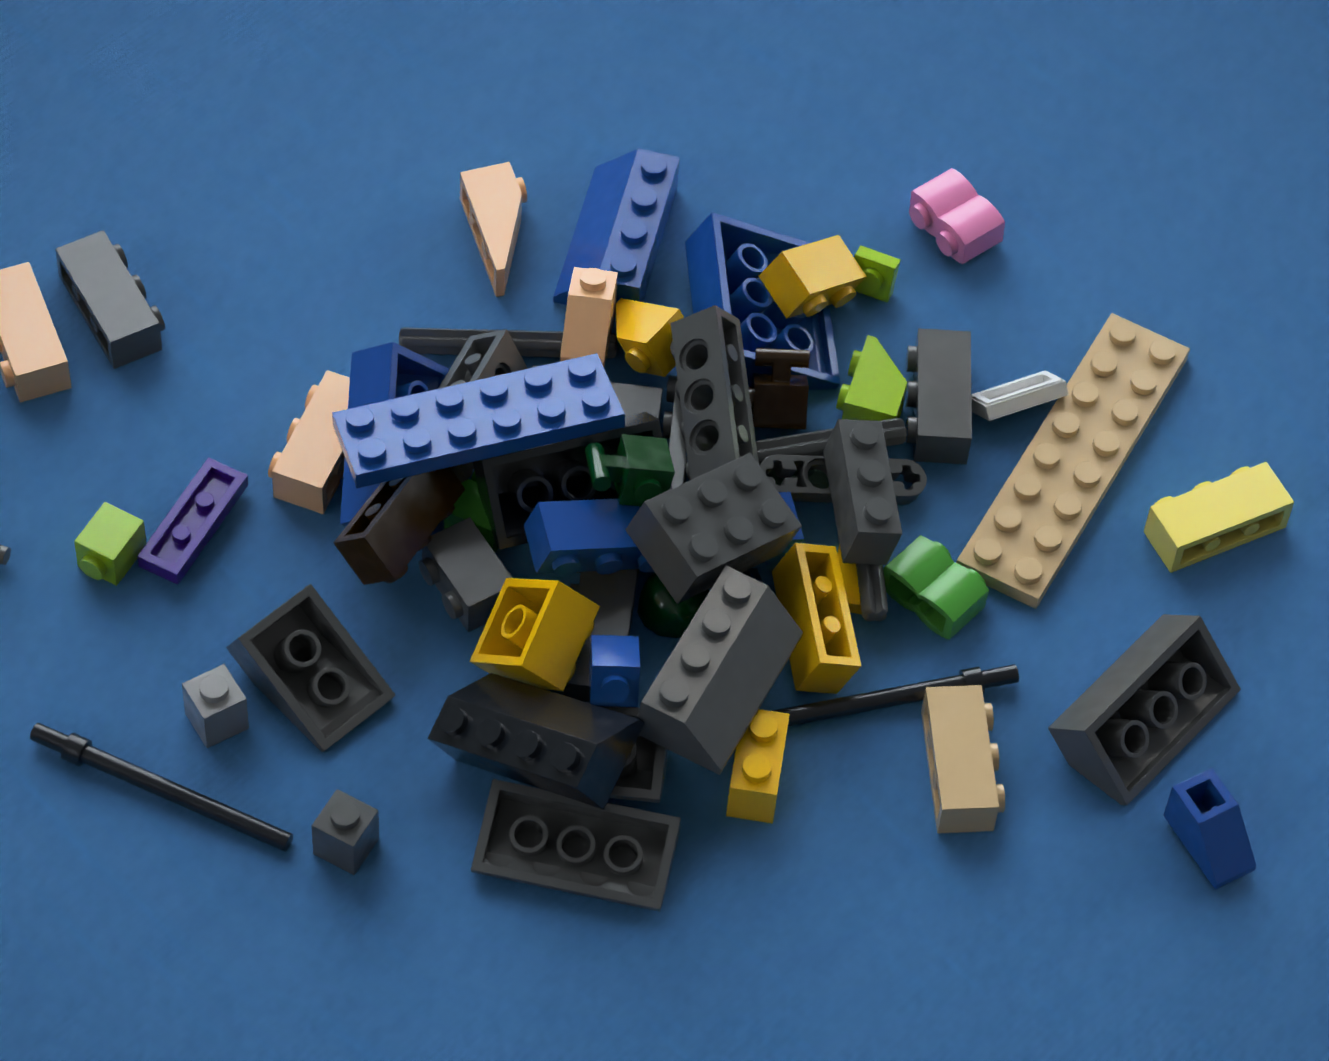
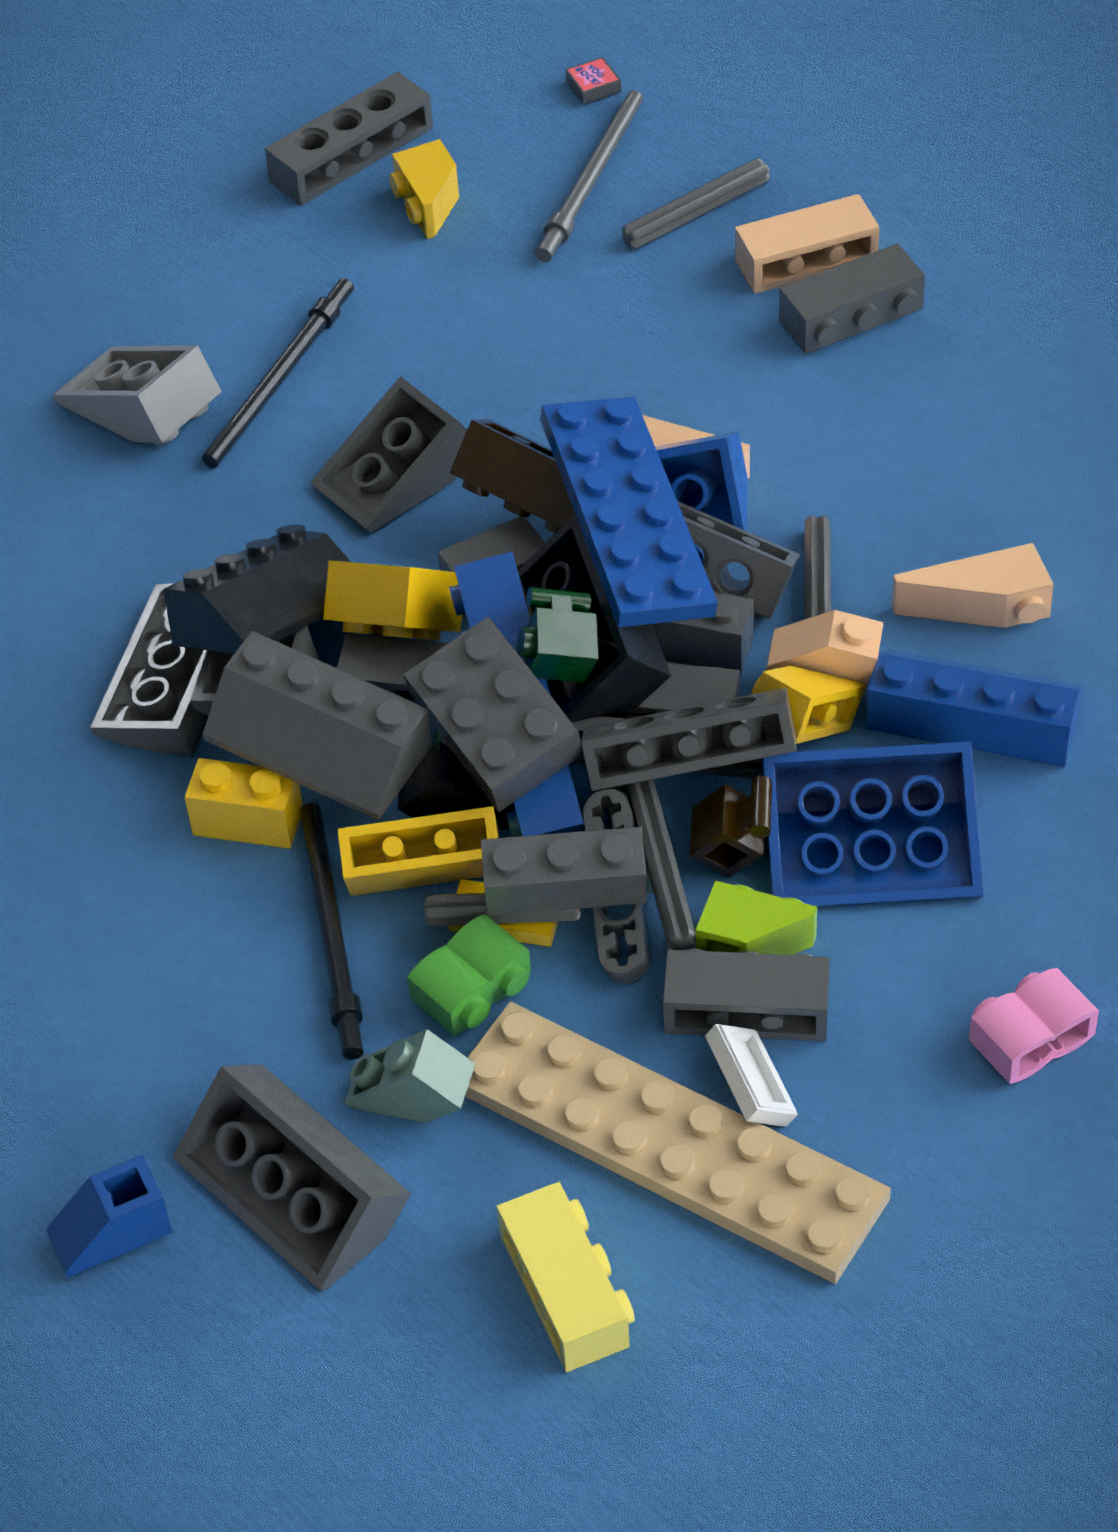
camera: 100 degrees right, 5 degrees down
(110, 544) = (549, 316): lime brick -> none
(189, 911) = (142, 391): none -> light grey slope
(192, 521) = (576, 371): plate -> none
(215, 705) = (351, 390): light grey brick -> none
(345, 832) = (203, 487): dark grey brick -> none
(614, 670) = (333, 639): blue brick -> none
(813, 277) = (902, 857): yellow brick -> none
(880, 273) = (927, 932): lime plate -> none
(961, 759) = (236, 986): tan brick -> none
(1047, 628) = (411, 1079): none -> sand green slope

